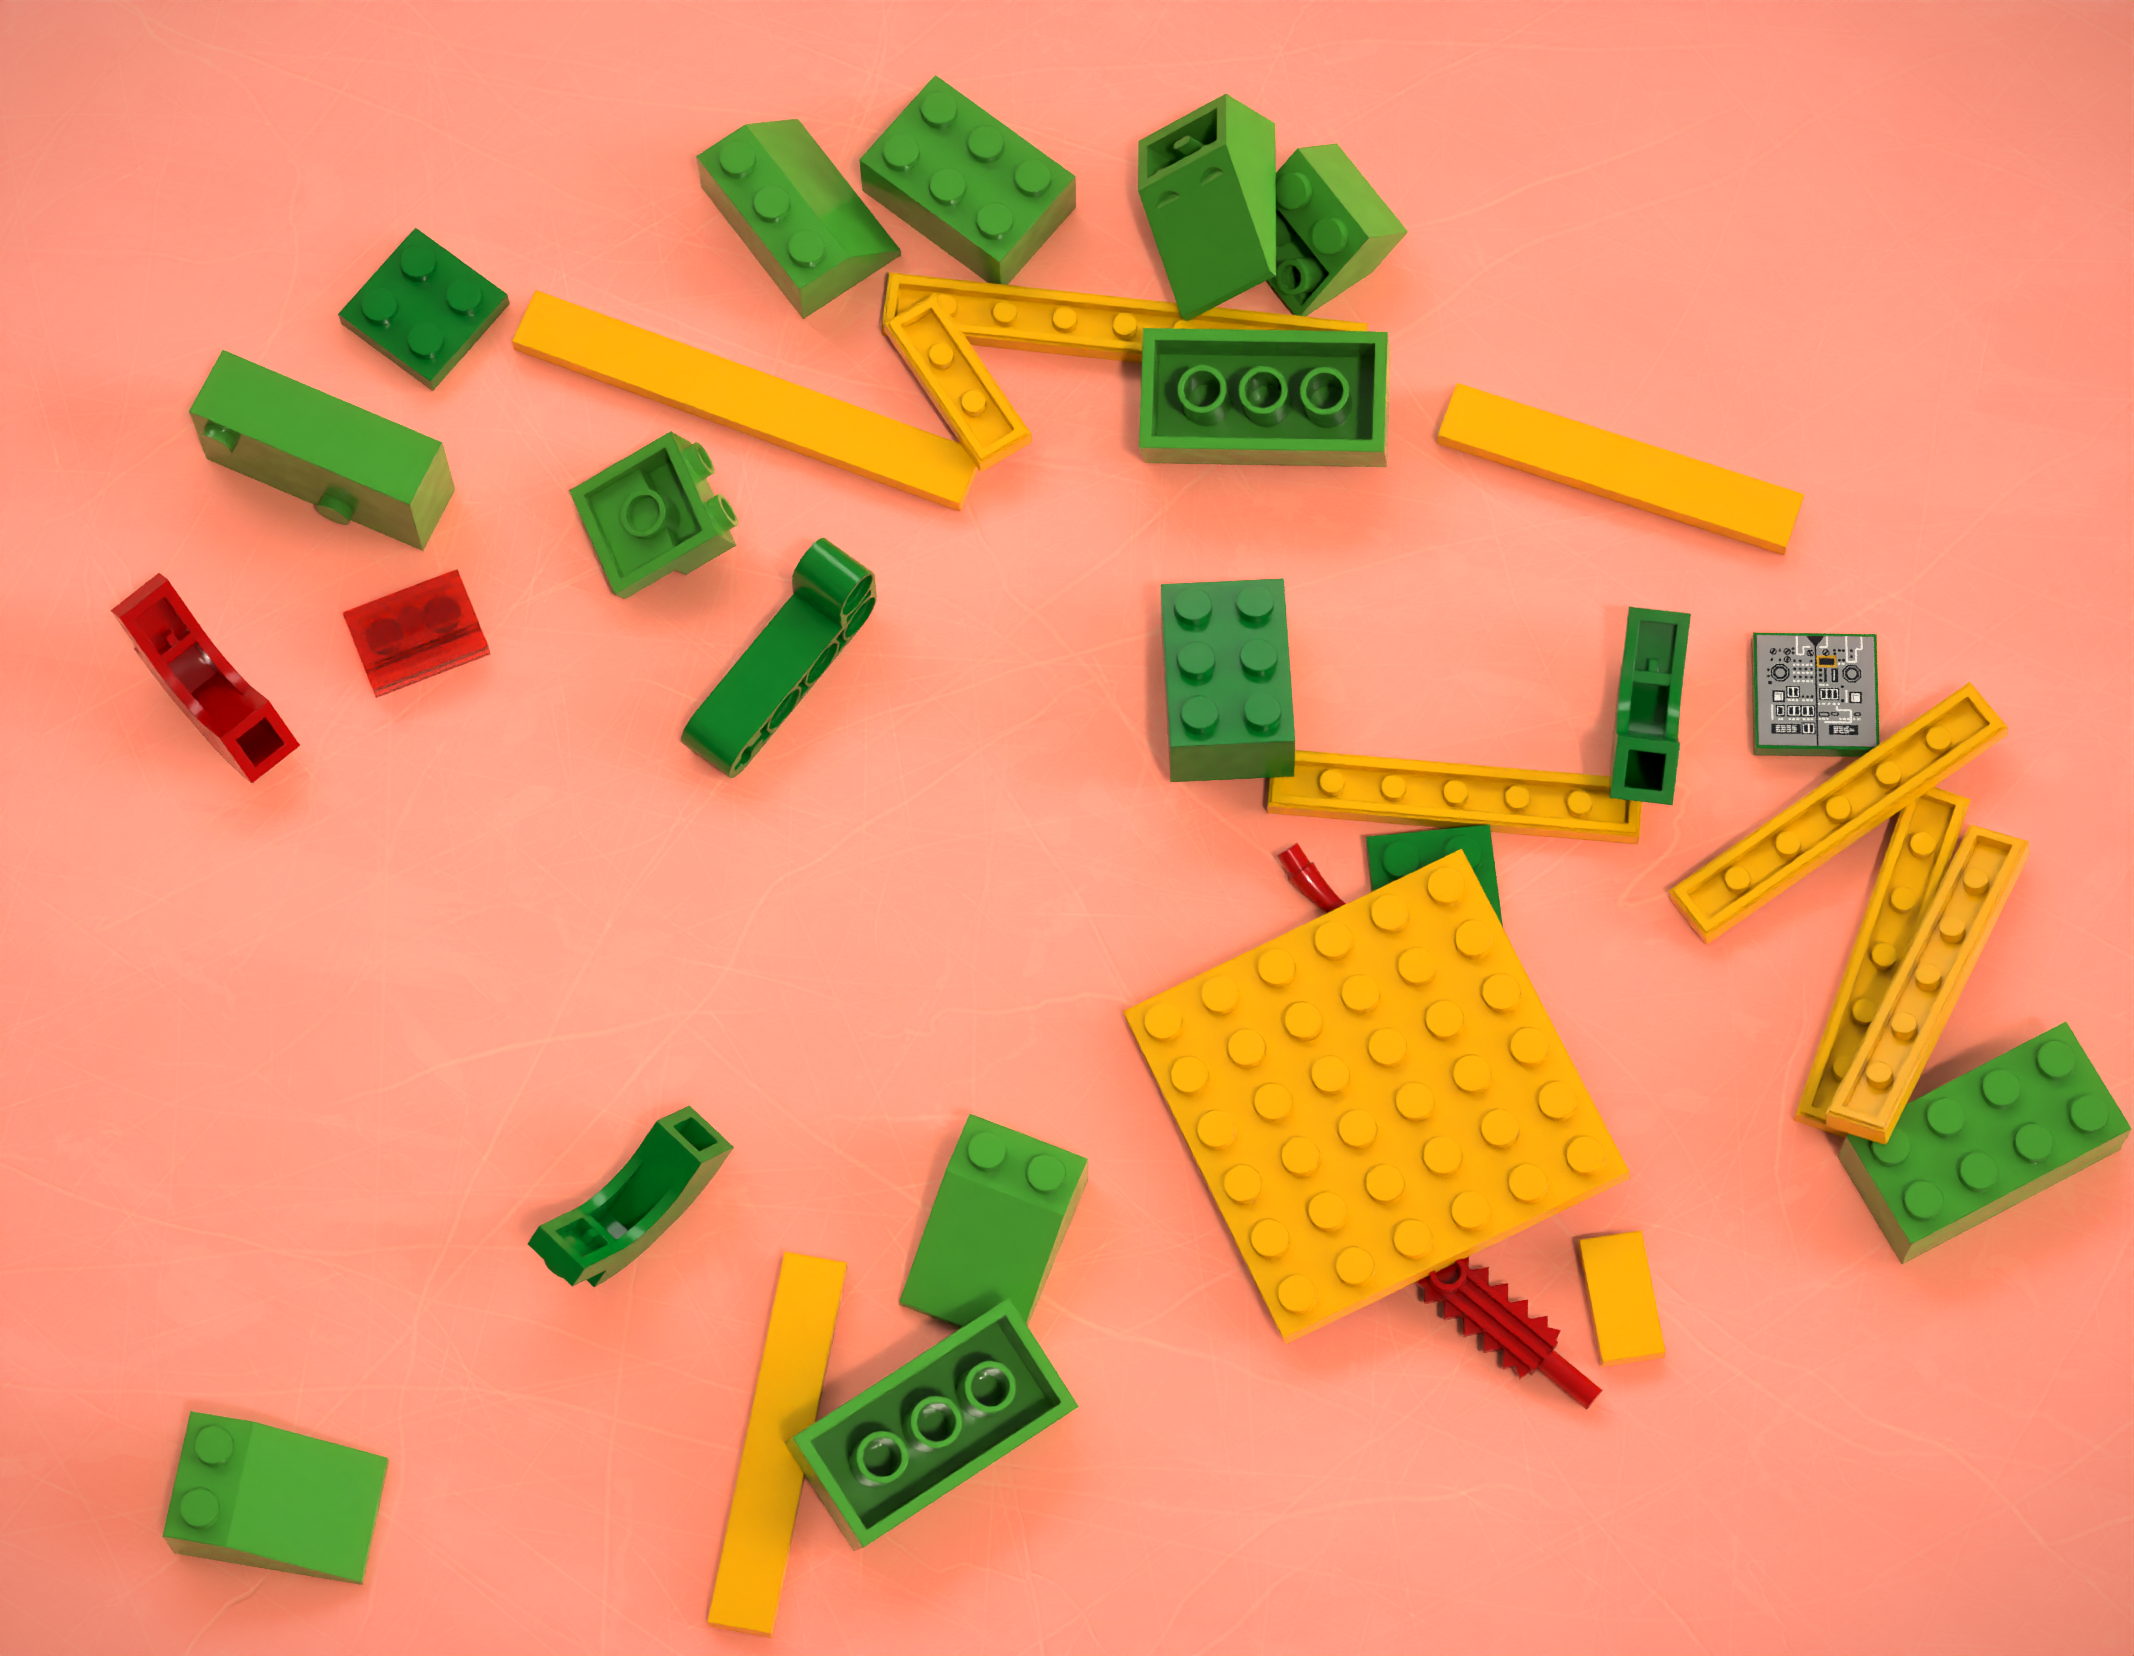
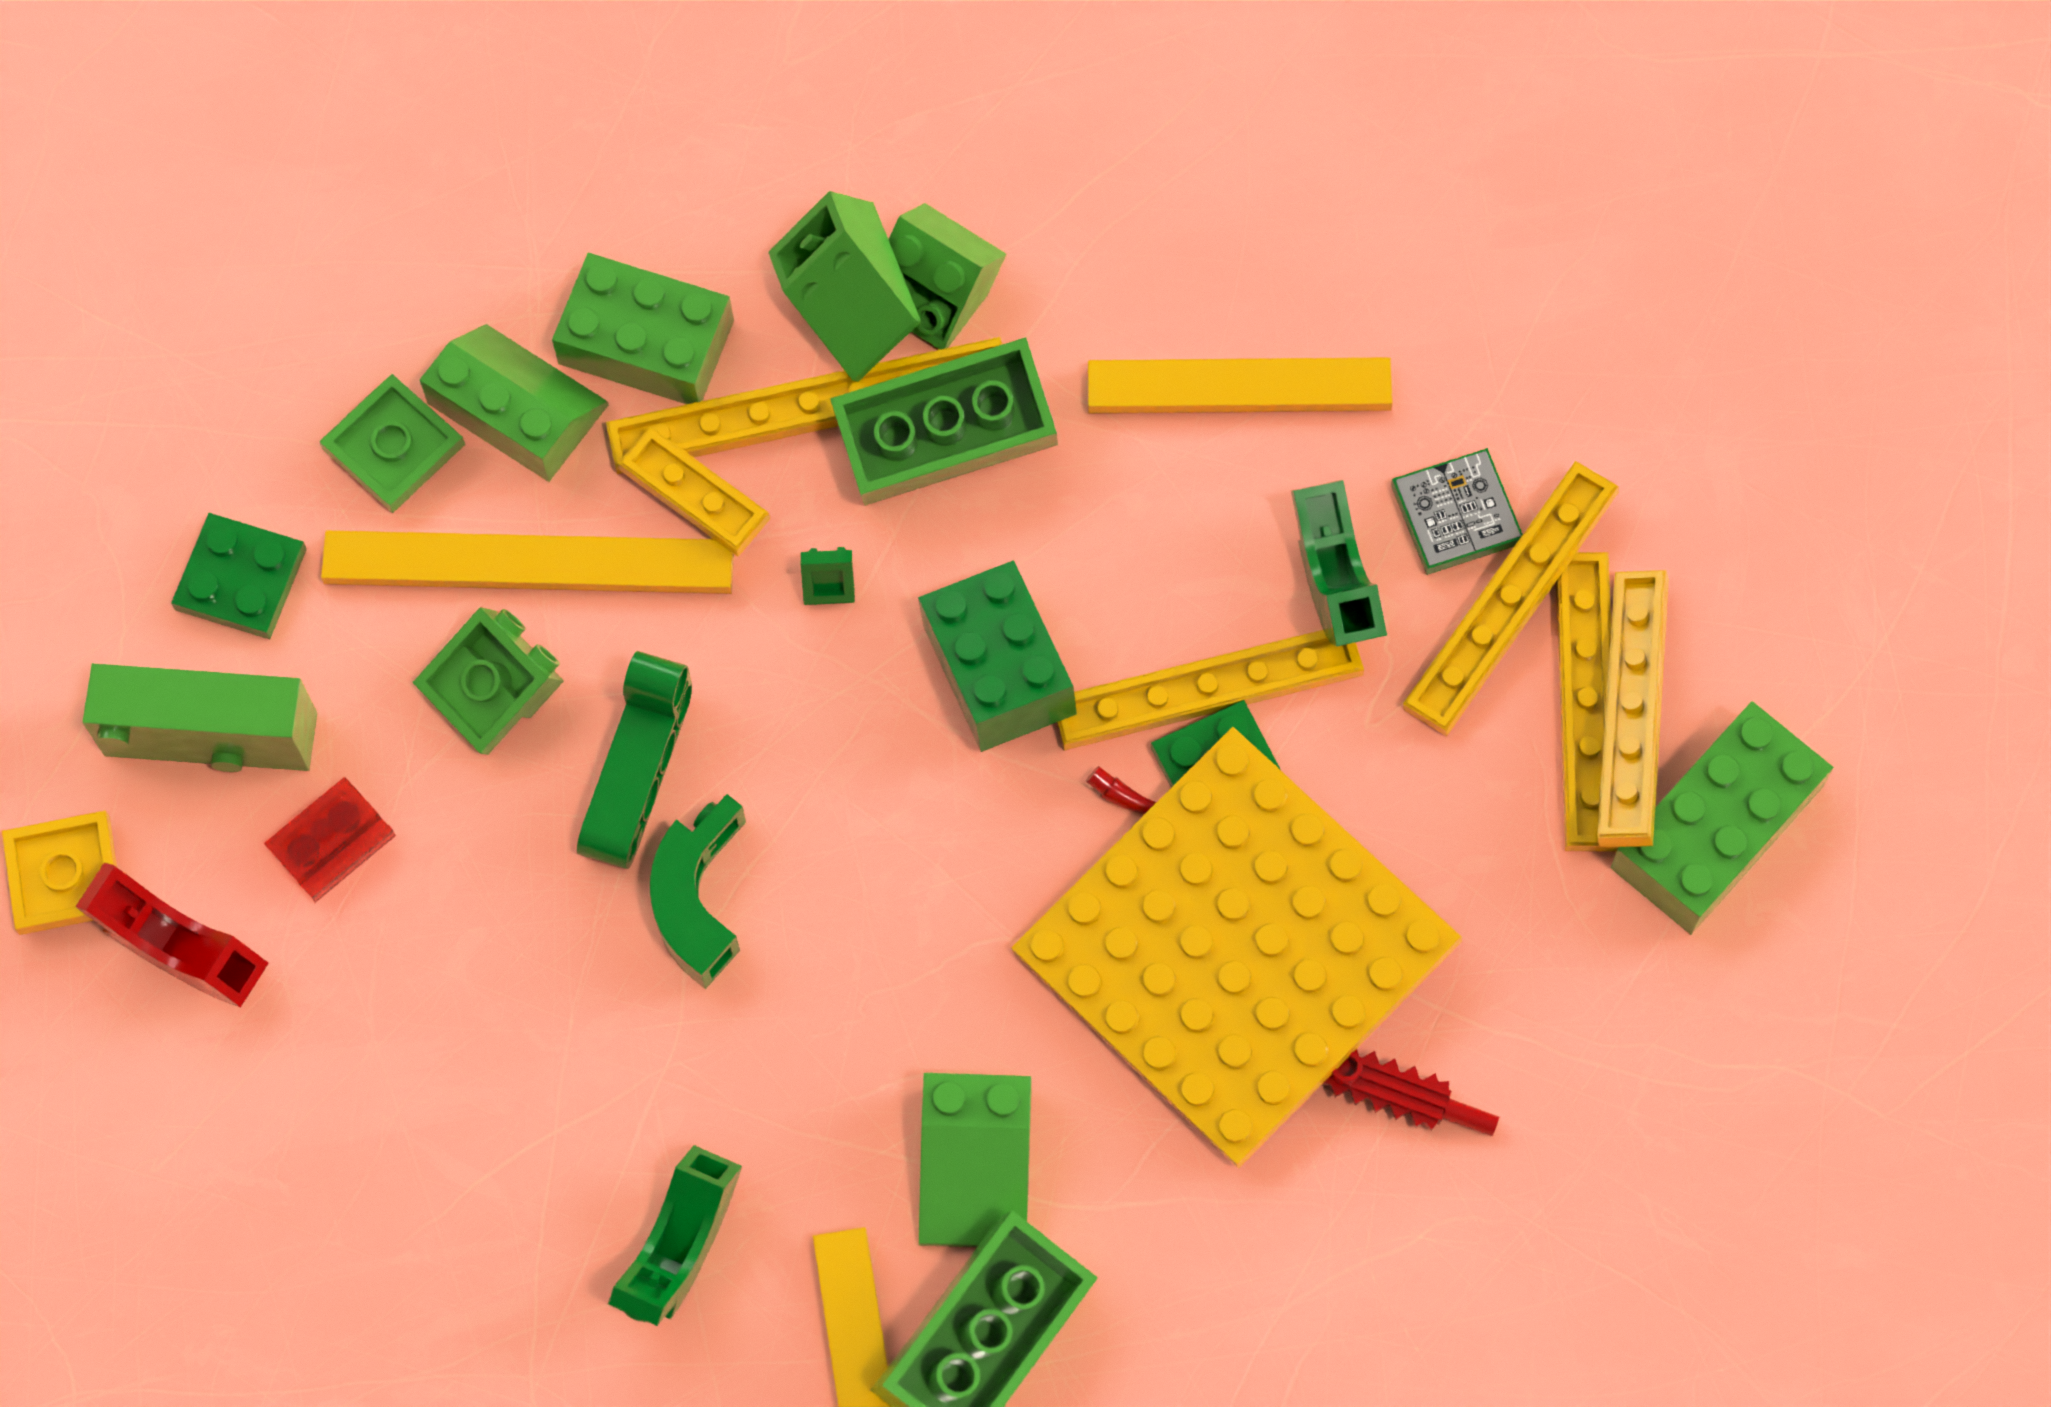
camera: 20 degrees left, 0 degrees up
(106, 558) = (53, 867): none -> yellow plate
(644, 217) = (392, 443): none -> bright green plate
(774, 816) = (688, 930): none -> green arch
(1071, 528) = (827, 576): none -> green tile
(1621, 1298) = (1486, 1039): yellow tile -> none

